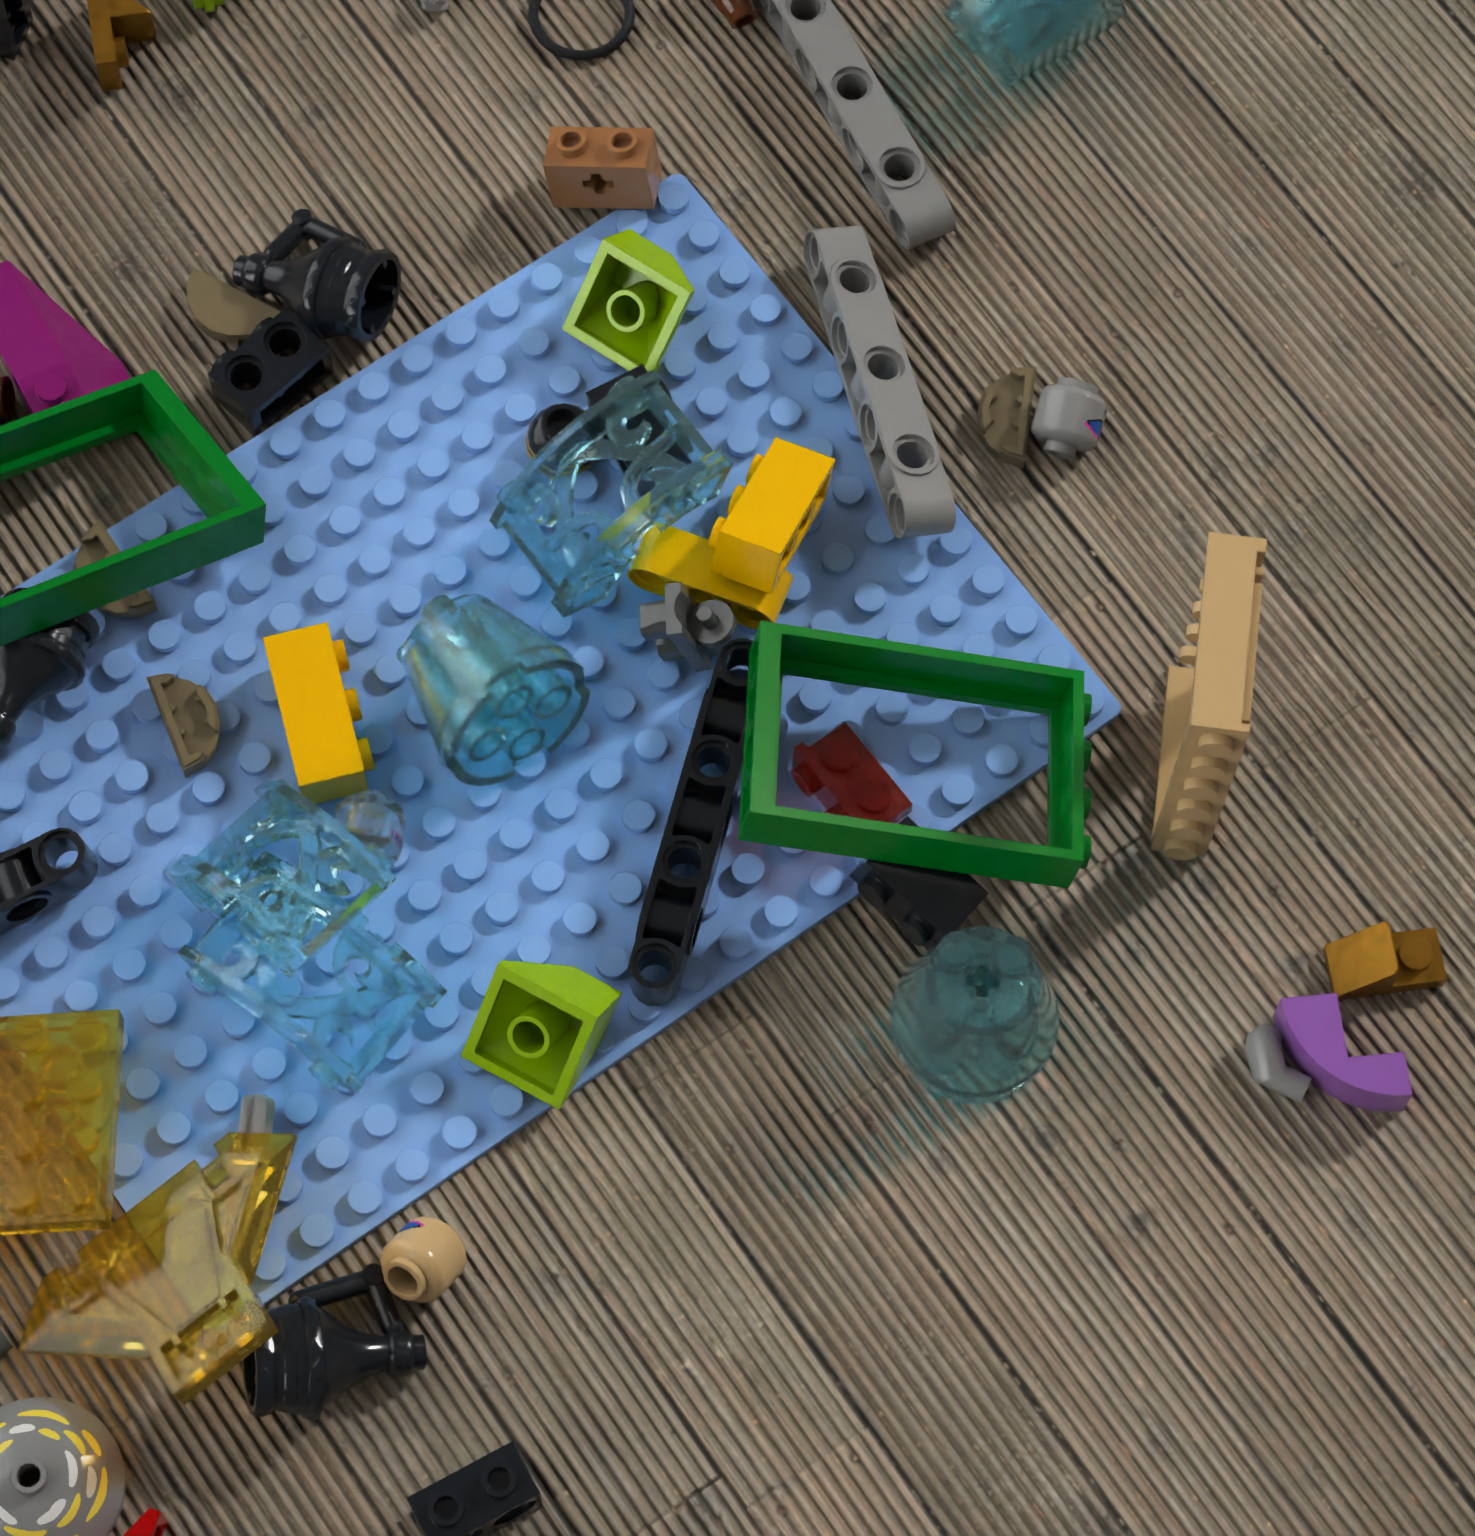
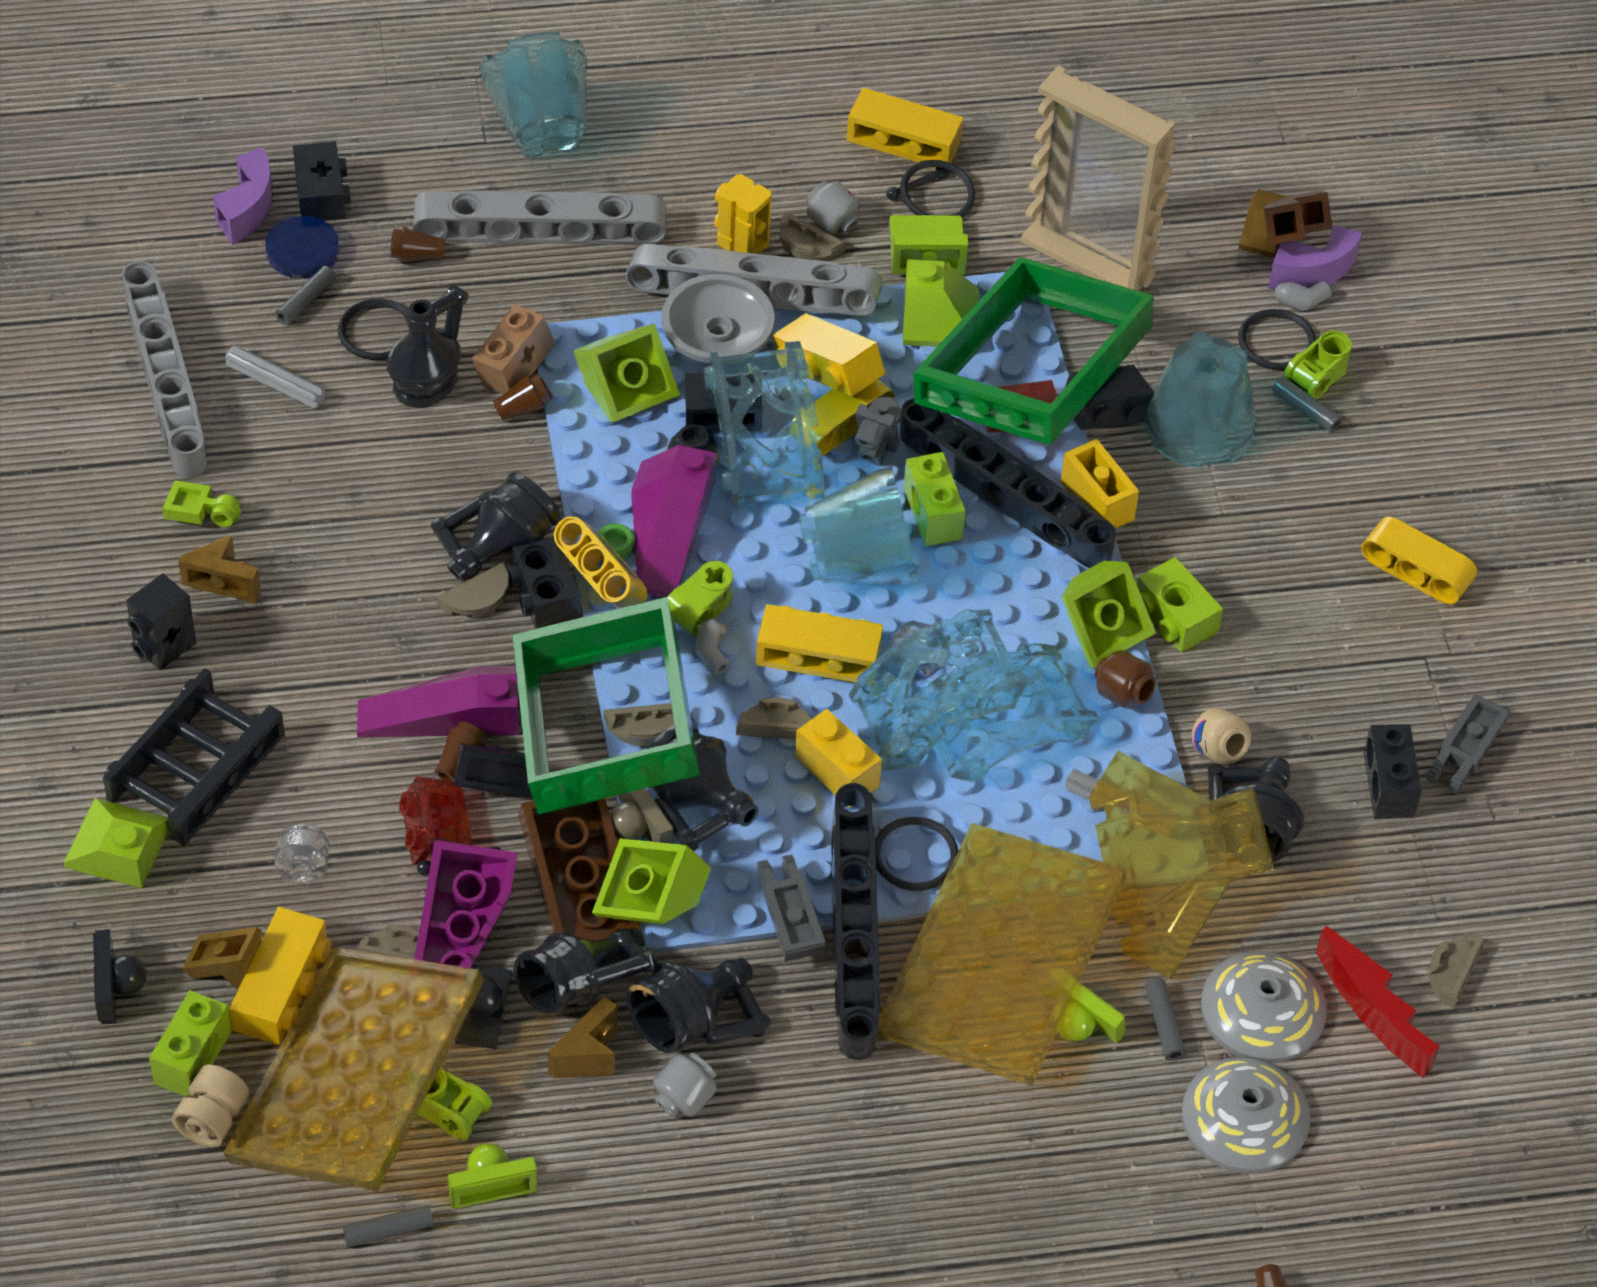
camera: 65 degrees left, 15 degrees down
(50, 917) = (914, 886): none -> black tyre
(143, 811) = (836, 754): none -> yellow brick
(258, 588) = (706, 645): none -> light grey arm
(306, 413) = (587, 555): none -> yellow beam
(310, 546) = (702, 596): none -> lime piece
(369, 417) = (620, 538): none -> bright green tile
(438, 459) = (668, 513): none -> magenta wedge
(443, 1100) = (1125, 679): none -> reddish brown head
(535, 75) = (427, 357): none -> black piece
(548, 216) = (524, 397): none -> reddish brown cone
(619, 745) = (934, 499): none -> lime brick
(619, 1150) = (1179, 604): none -> lime brick
(741, 935) = (1100, 483): none -> yellow brick
(773, 338) = (717, 316): none -> light grey dish
(869, 1402) = (1419, 560): none -> yellow beam
(961, 604) = (934, 301): none -> lime slope
(969, 318) = (743, 215): none -> yellow brick
(1078, 1148) = (1307, 404): none -> dark grey piece
(1079, 555) = (927, 239): none -> lime bracket
(1144, 1136) = (1321, 363): none -> lime piece
(1149, 496) = (942, 164): none -> black tyre
(1163, 1111) = (1265, 313): none -> black tyre
(1229, 521) = (894, 193): none -> black hinge
(1266, 442) = (903, 127): none -> yellow brick
(1351, 976) = (1296, 215): none -> reddish brown brick

